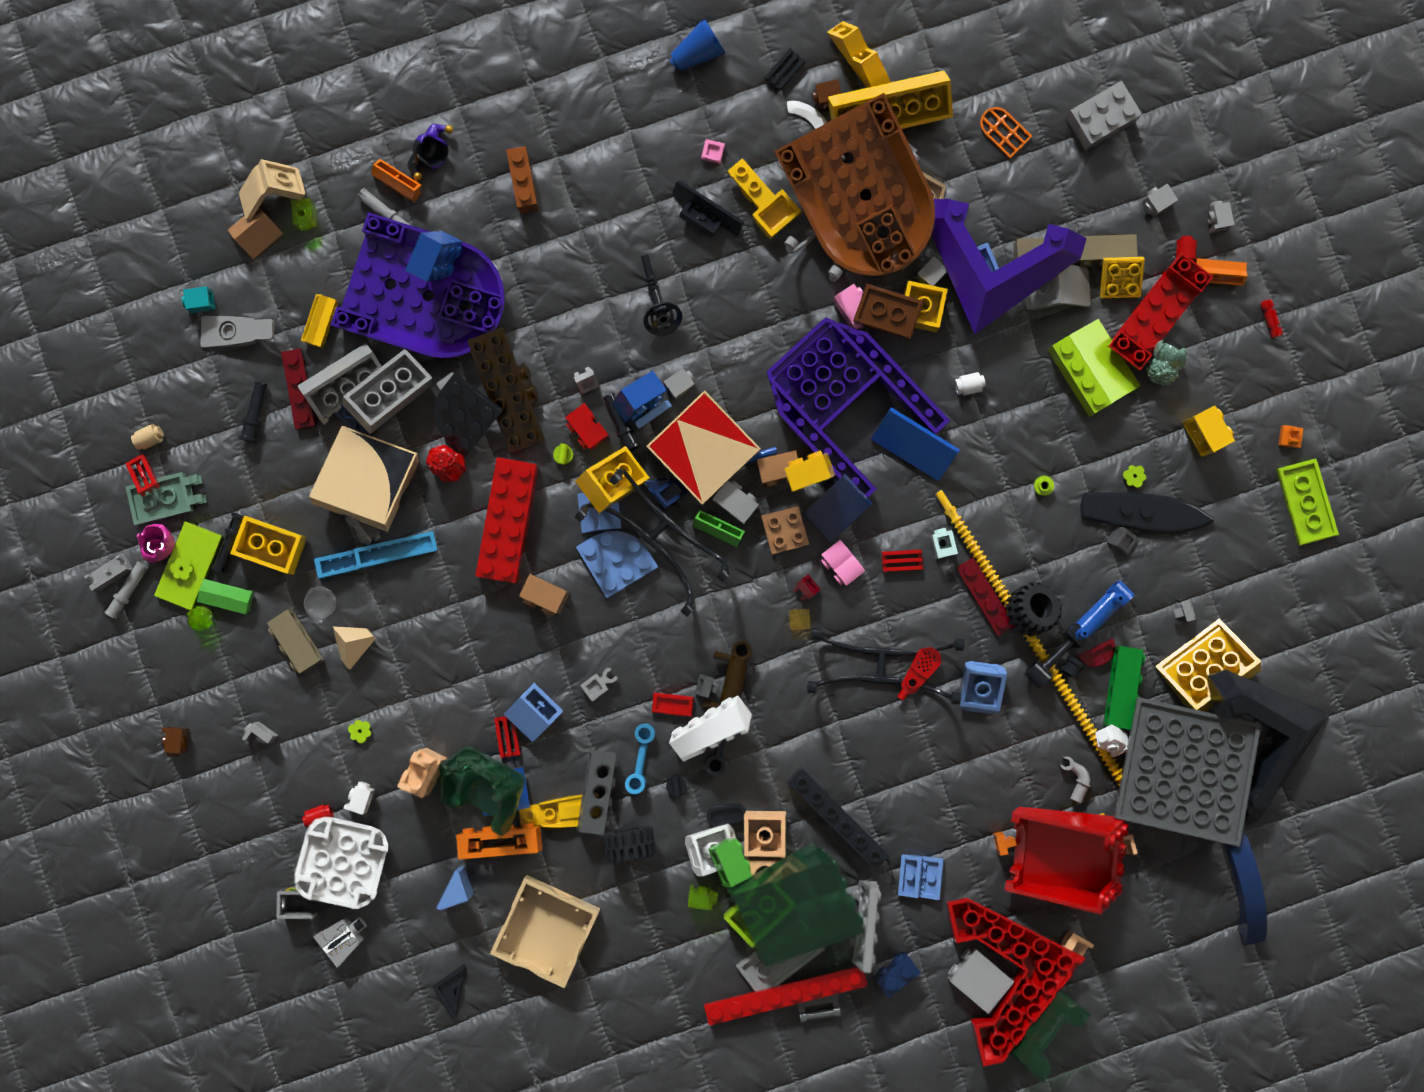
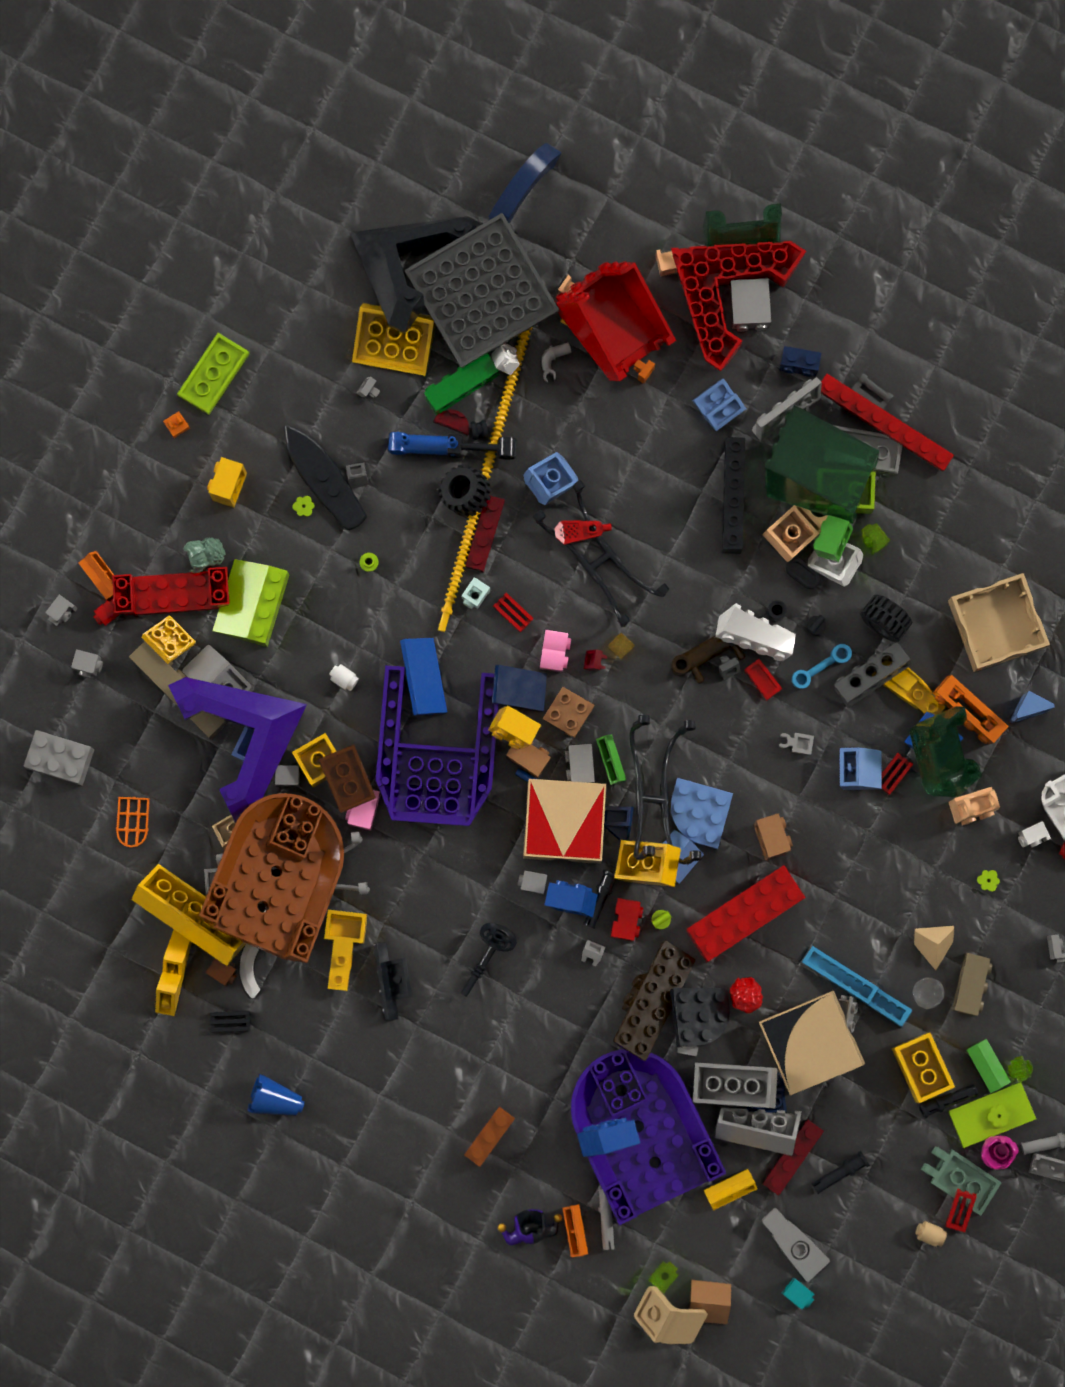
camera: 135 degrees left, 5 degrees down
(652, 414) = (573, 879): medium blue tile -> none
(713, 151) = (340, 1017): bright pink tile -> none
(1271, 318) = (102, 510): red axle -> none

